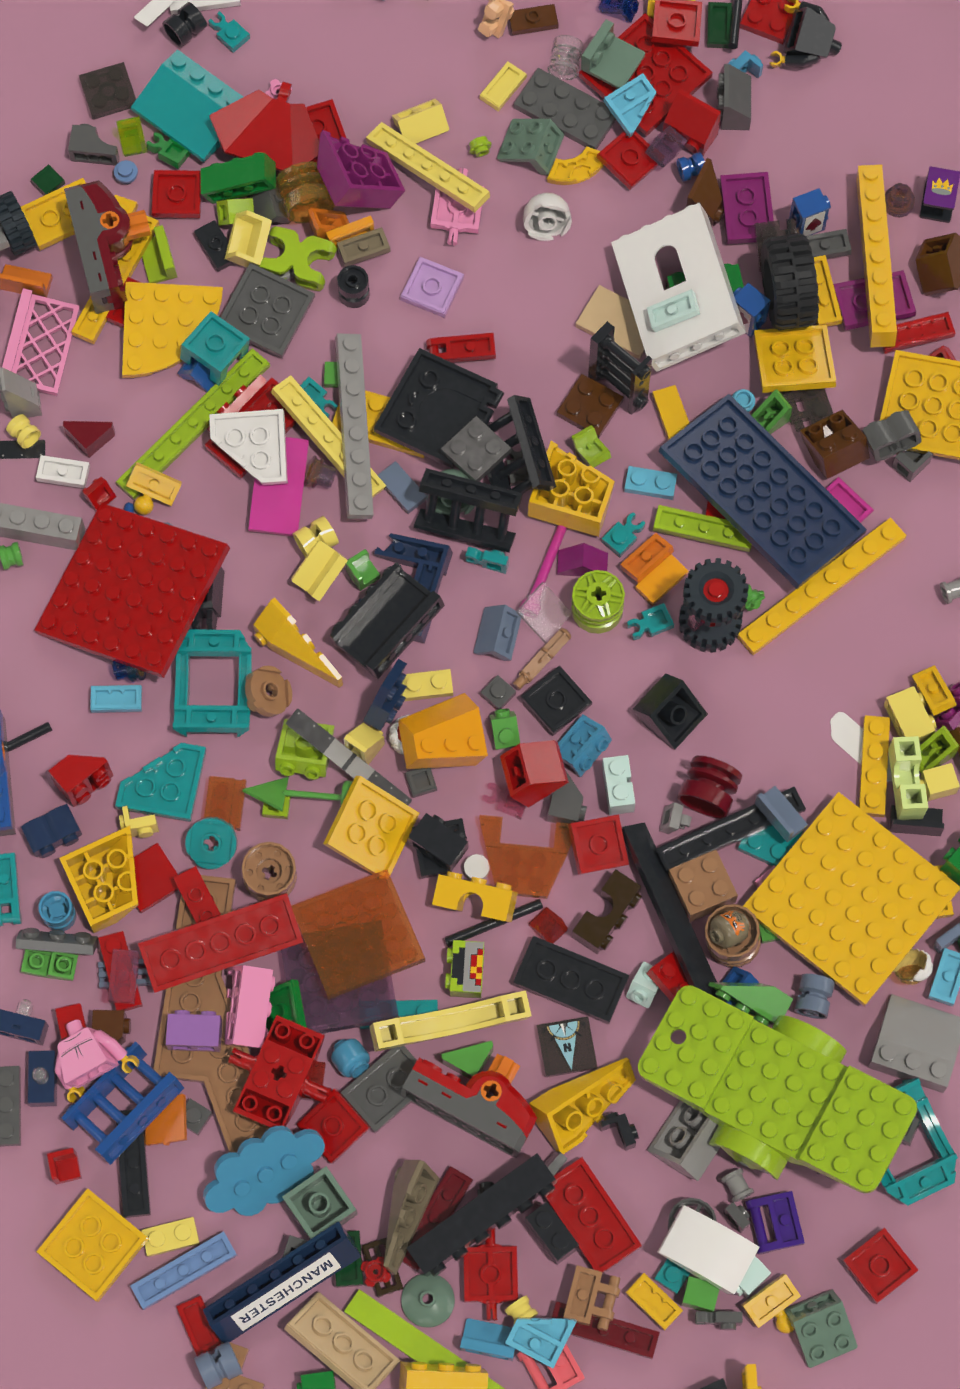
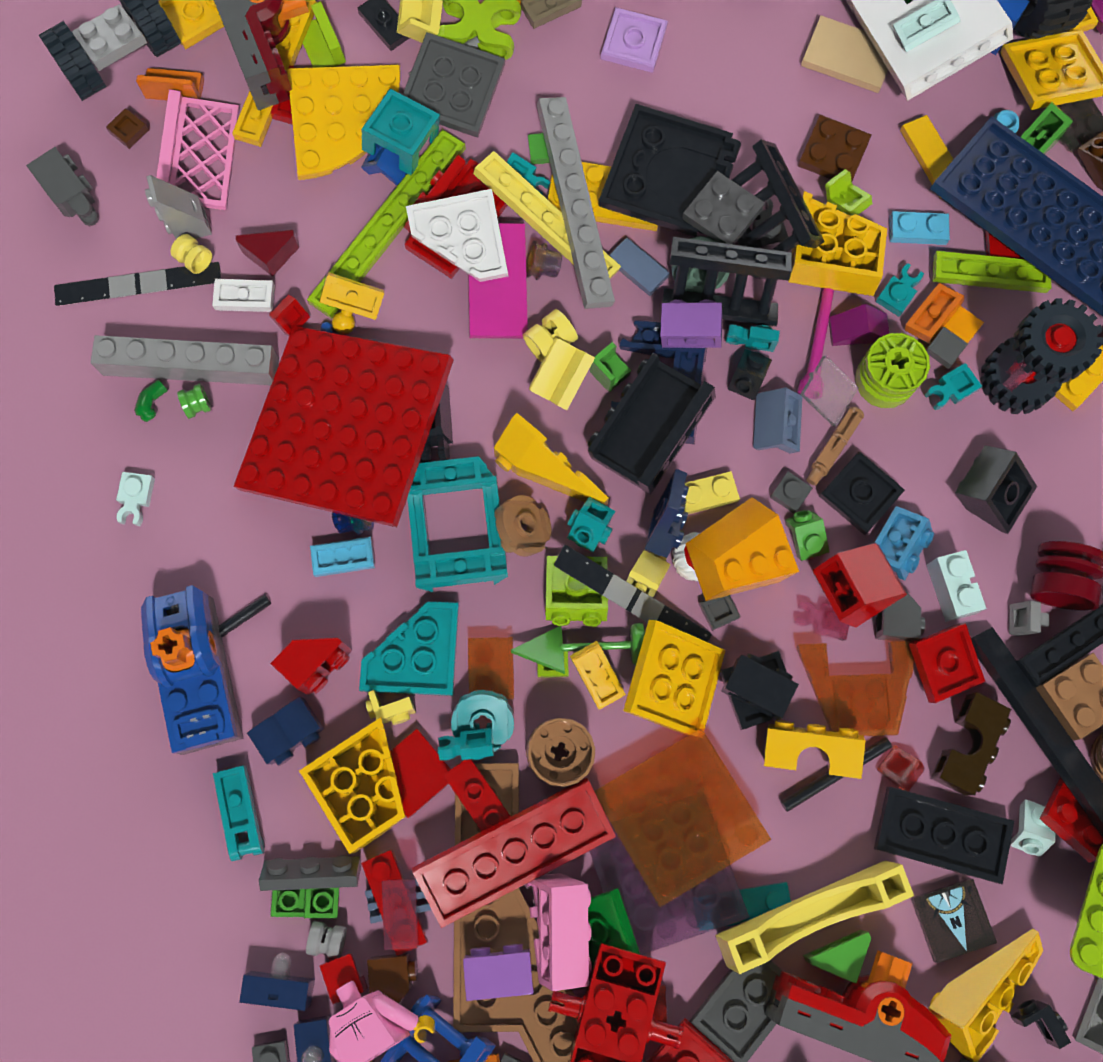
camera: 10 degrees left, 5 degrees up
(57, 911) = (305, 835): dark azure wheel -> none
(62, 994) = (326, 940): none -> light grey wheel
(196, 857) = (470, 745): none -> teal plate
(310, 818) = (597, 675): none -> yellow plate
(324, 697) = (590, 524): none -> teal brick
(350, 1058) = (695, 974): dark azure head -> none
(353, 286) = (547, 46): black wheel -> none
(433, 542) = (691, 324): none -> medium lavender brick
(464, 347) = (684, 100): red plate -> none
(466, 969) = (816, 839): brick -> none
(476, 866) = (804, 708): white tile -> none
(480, 589) = (749, 374): none -> black bracket
(619, 368) = (850, 91): black fence -> none
(649, 588) = (946, 347): none -> dark grey tile

